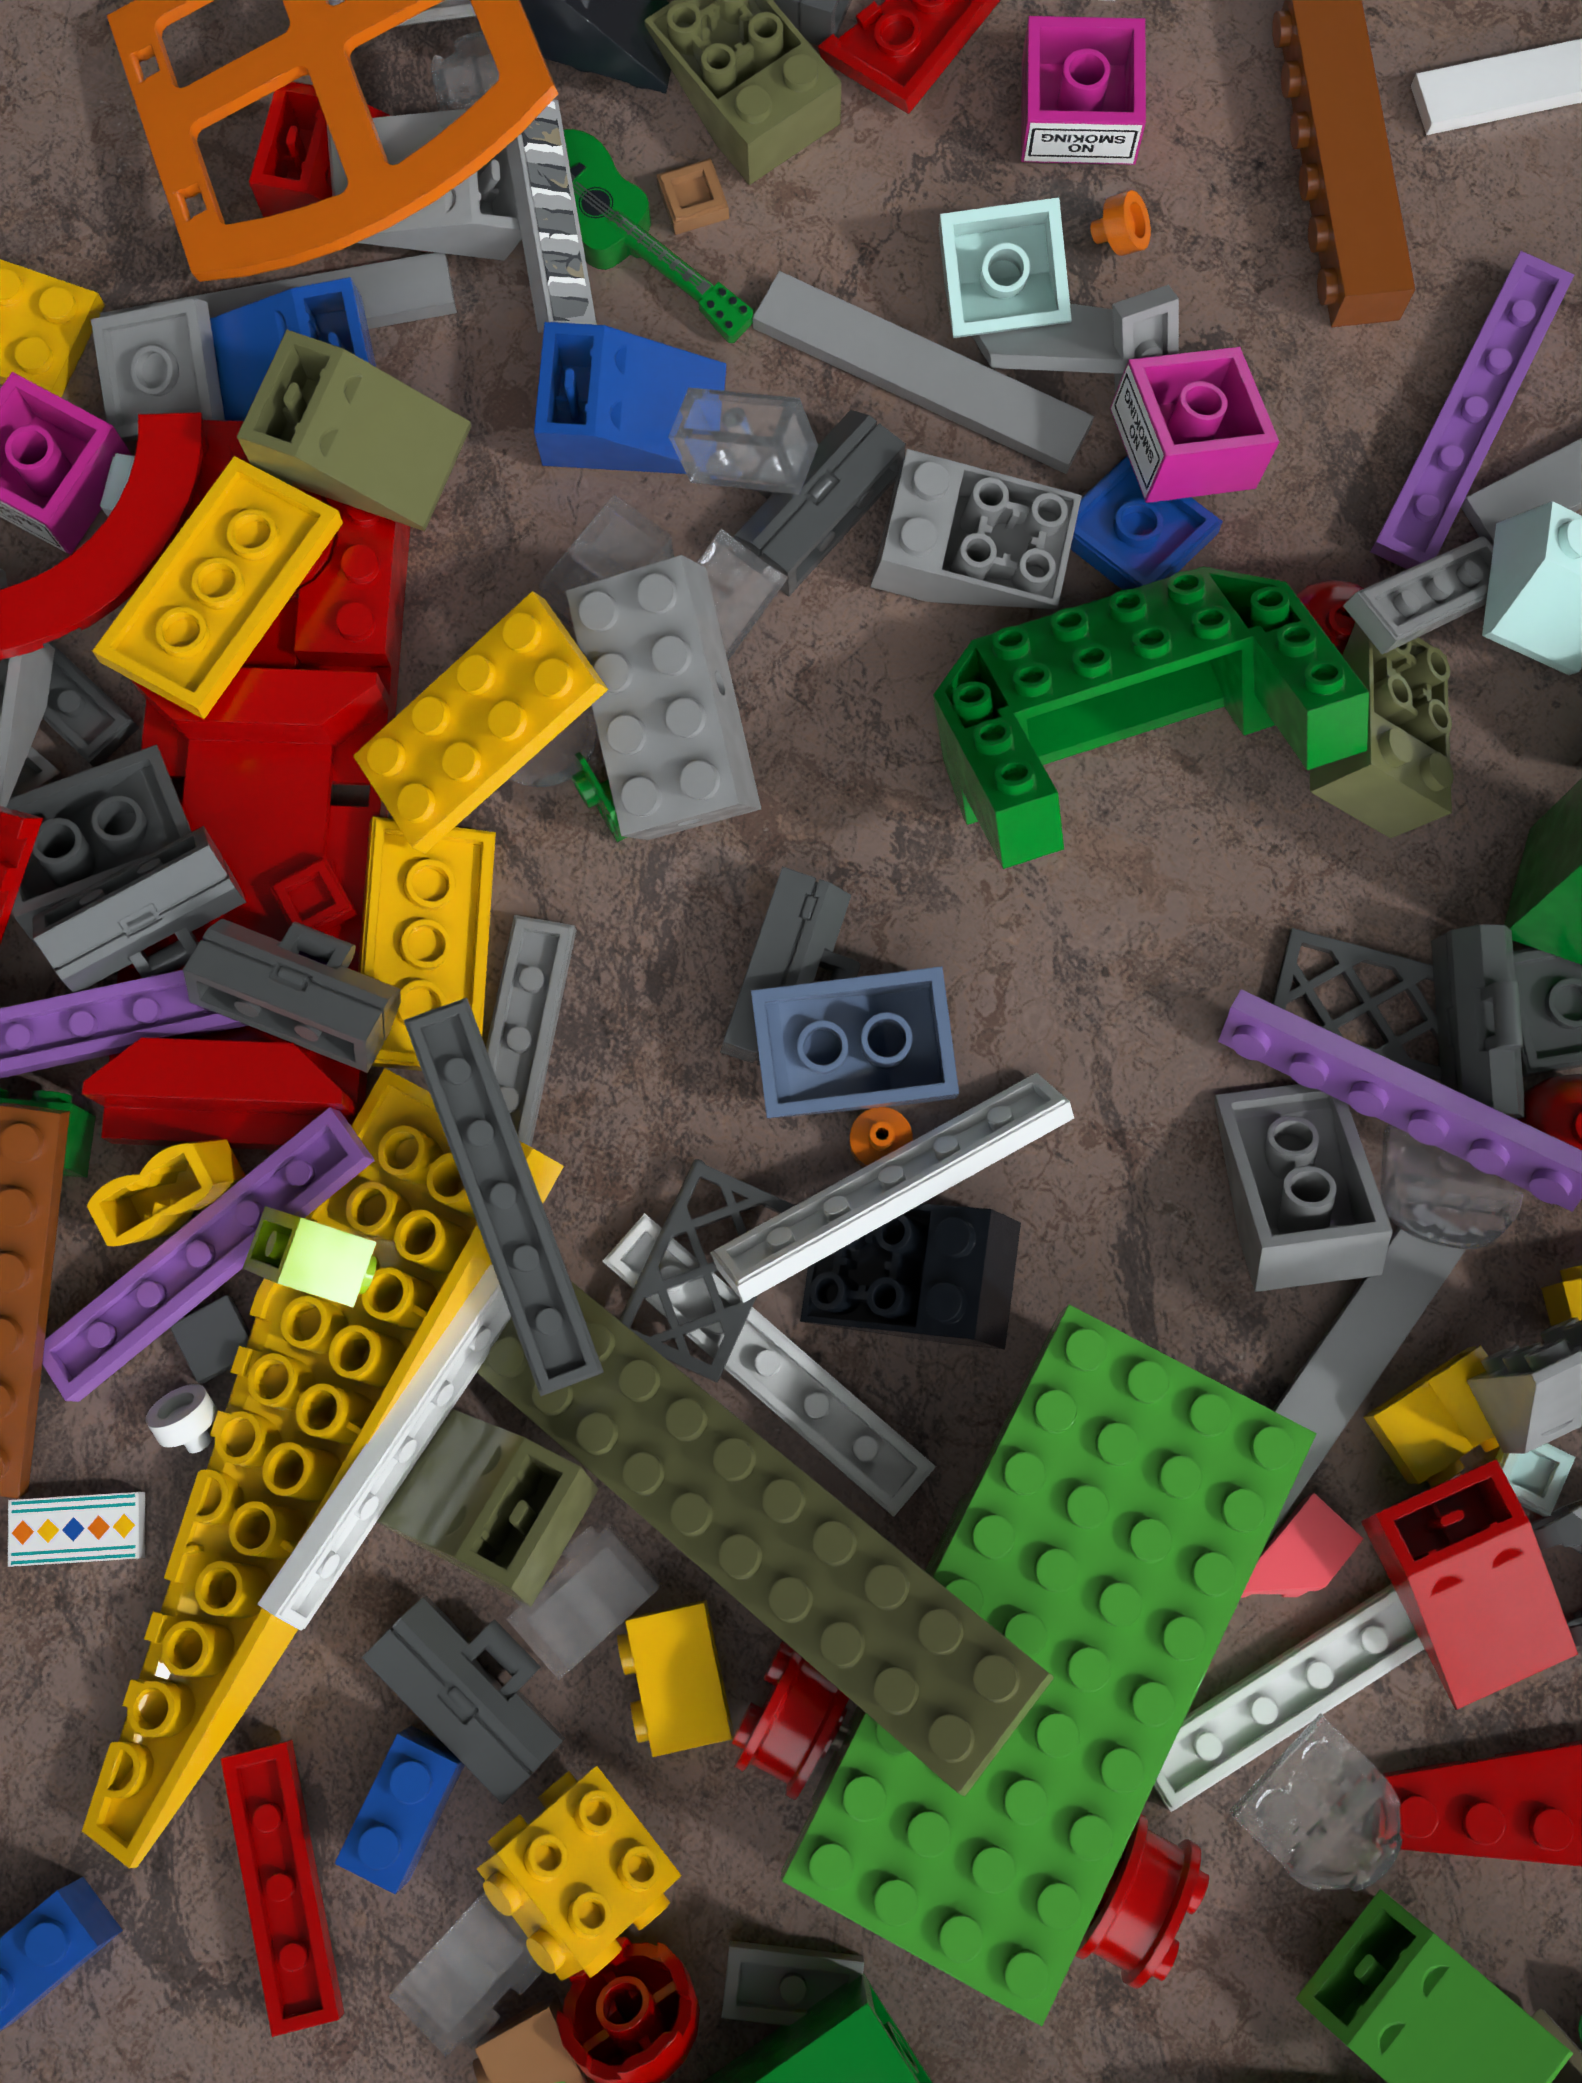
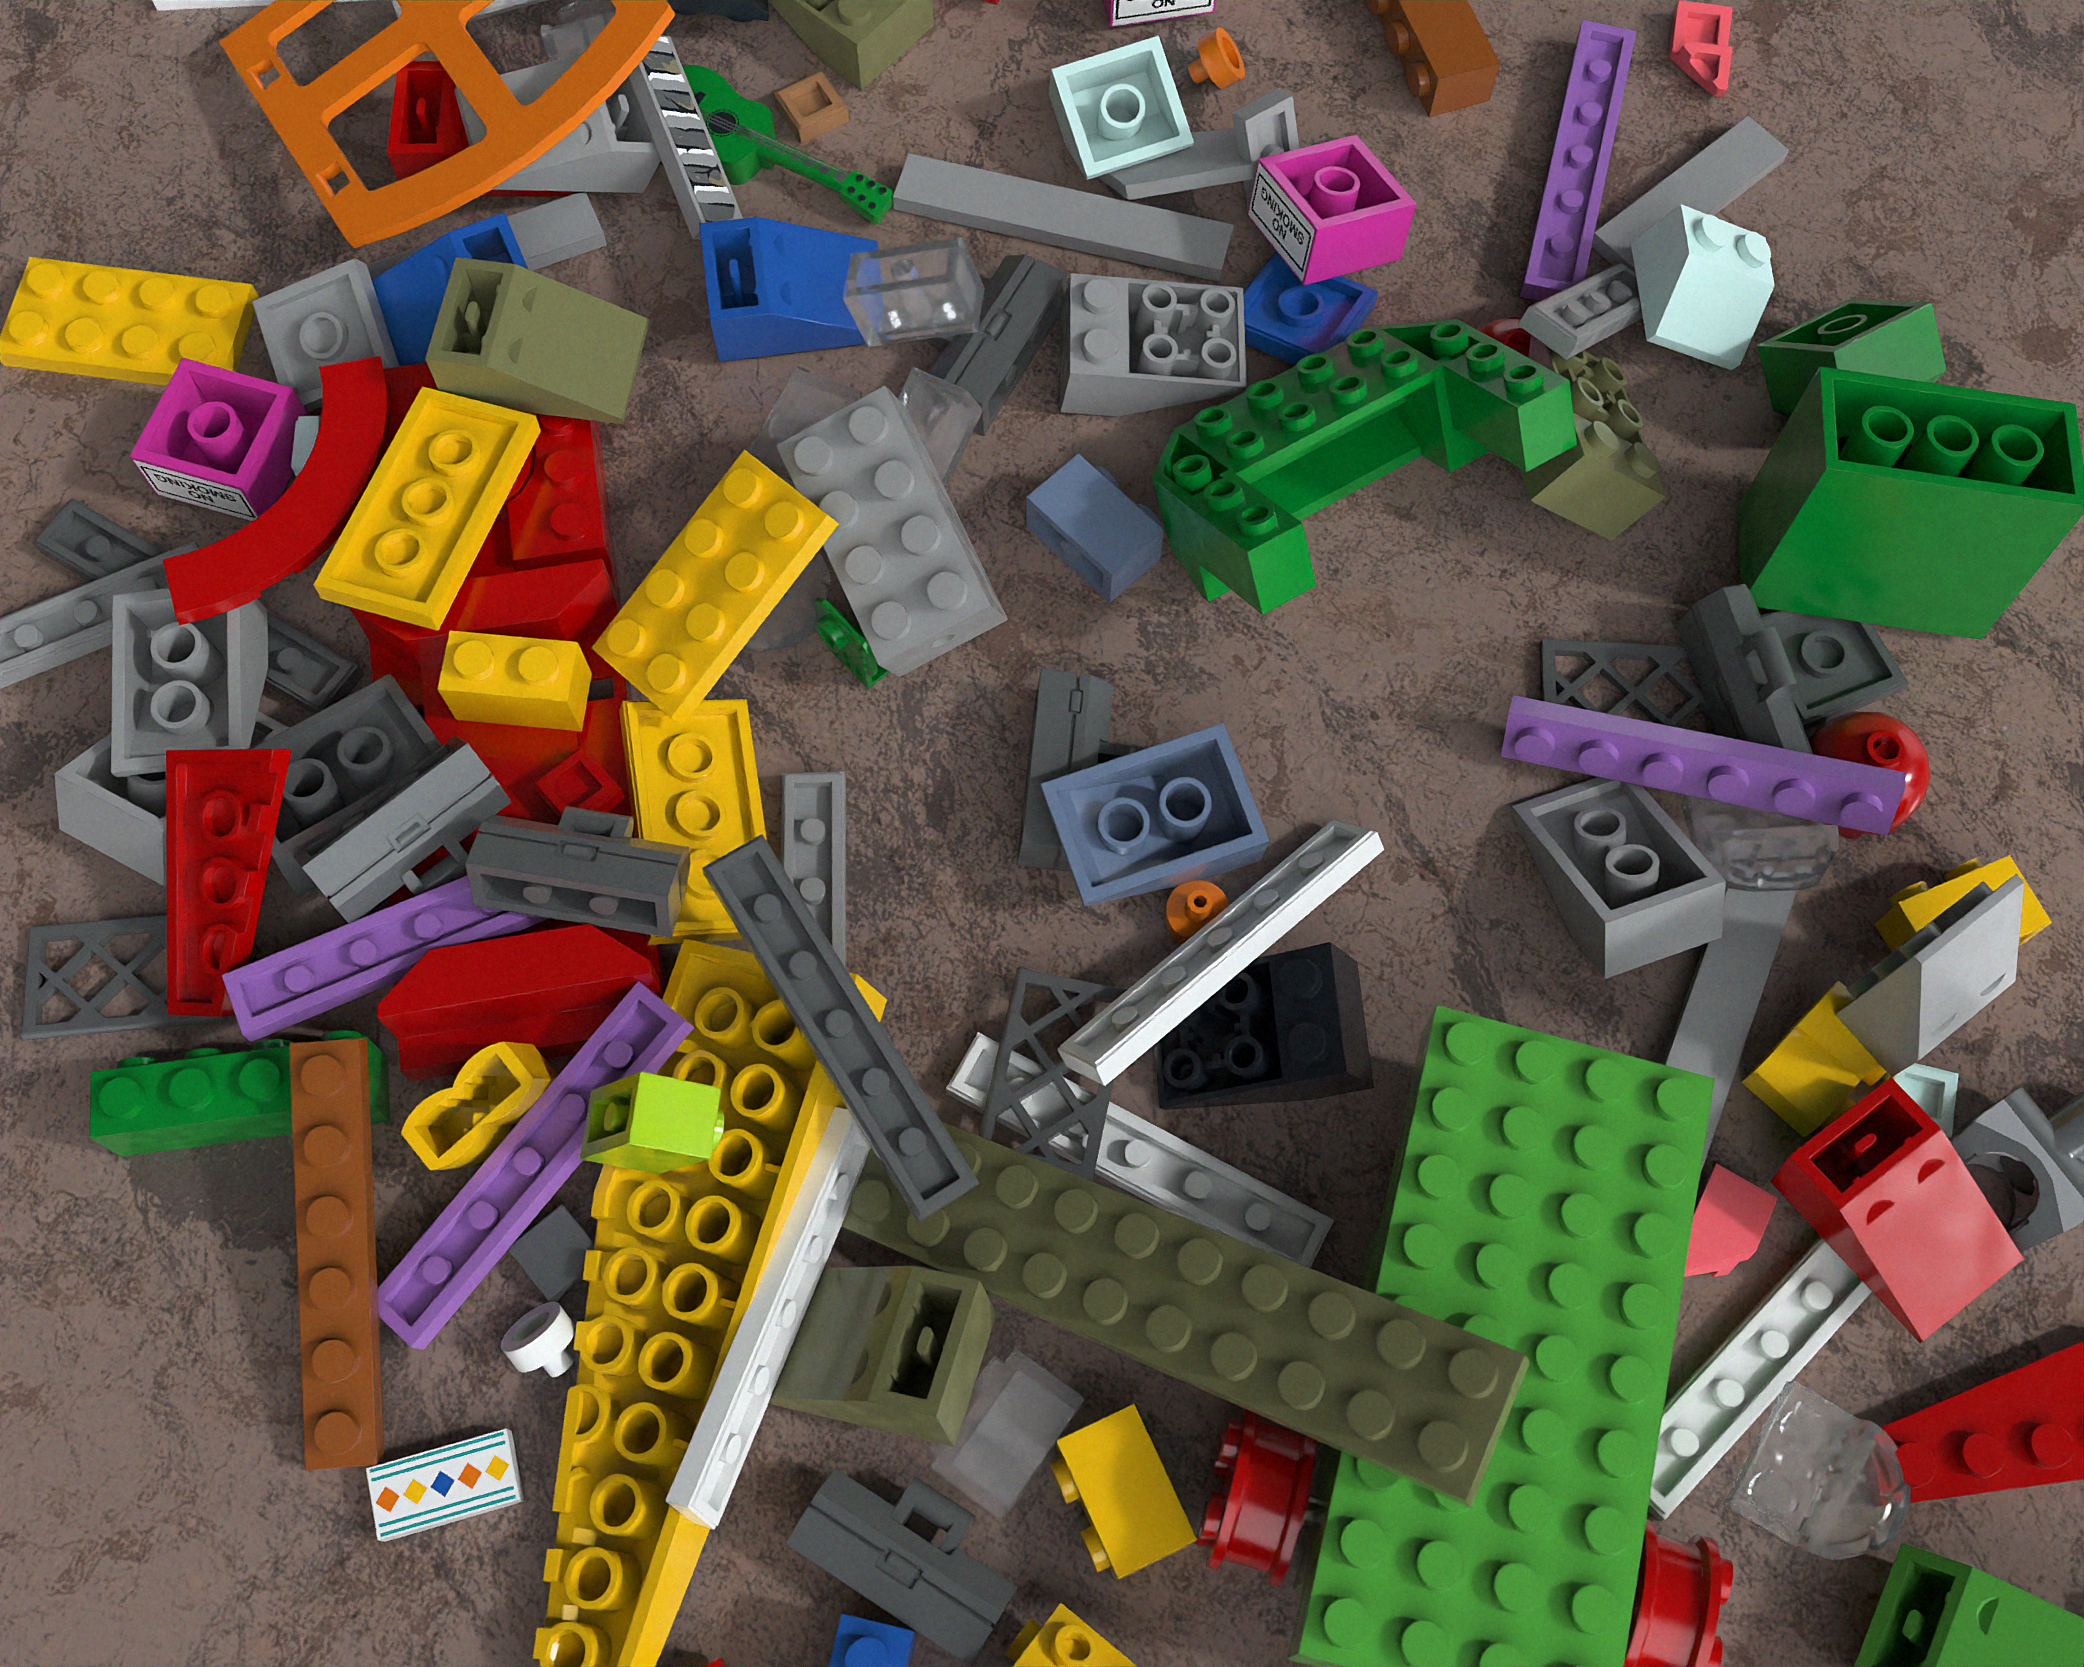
camera: 15 degrees left, 10 degrees down
(271, 779) = (515, 680): none -> yellow brick
(874, 721) = (1095, 527): none -> sand blue brick

